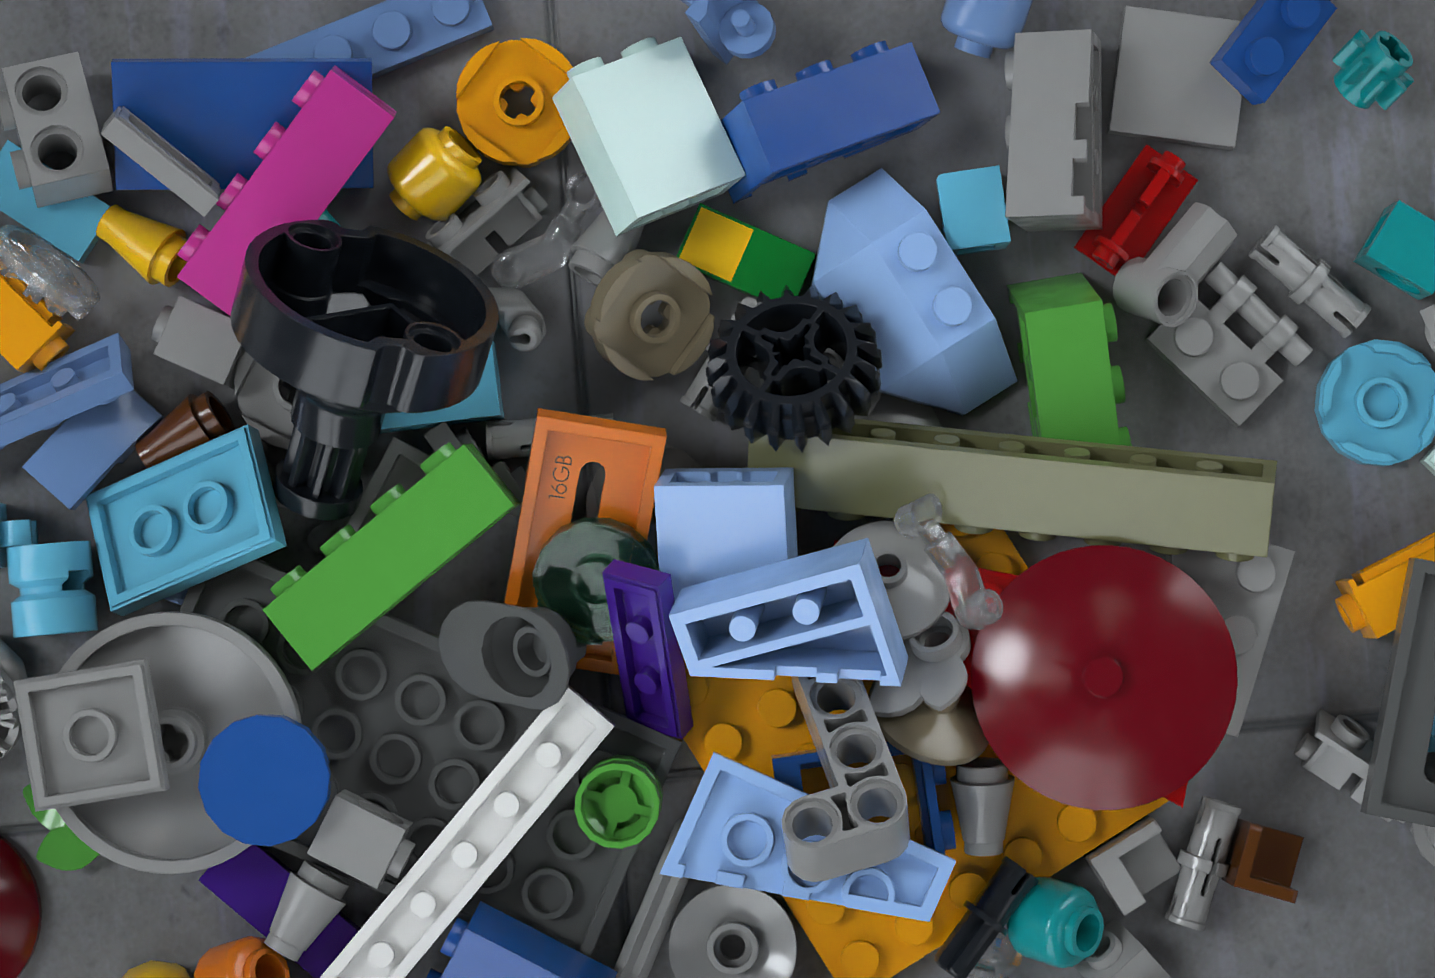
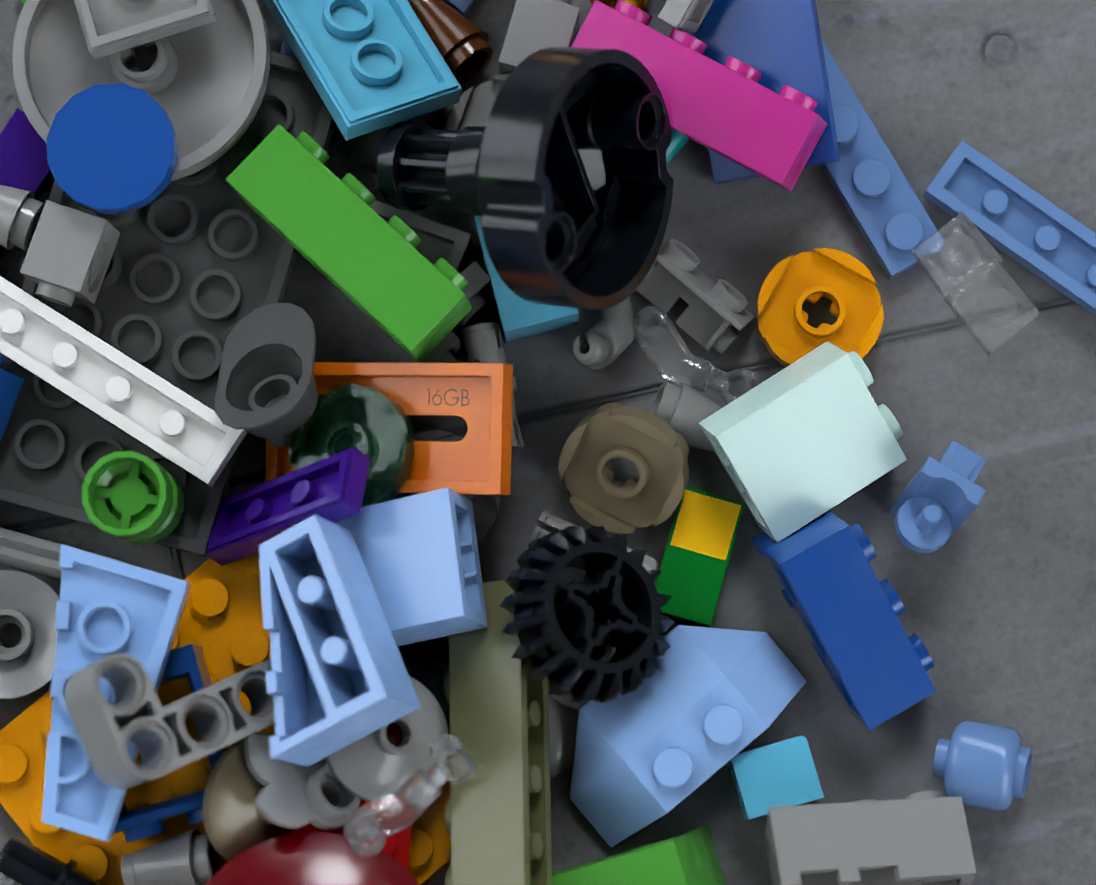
camera: 85 degrees right, 5 degrees down
(434, 174) = (735, 238): yellow head -> none

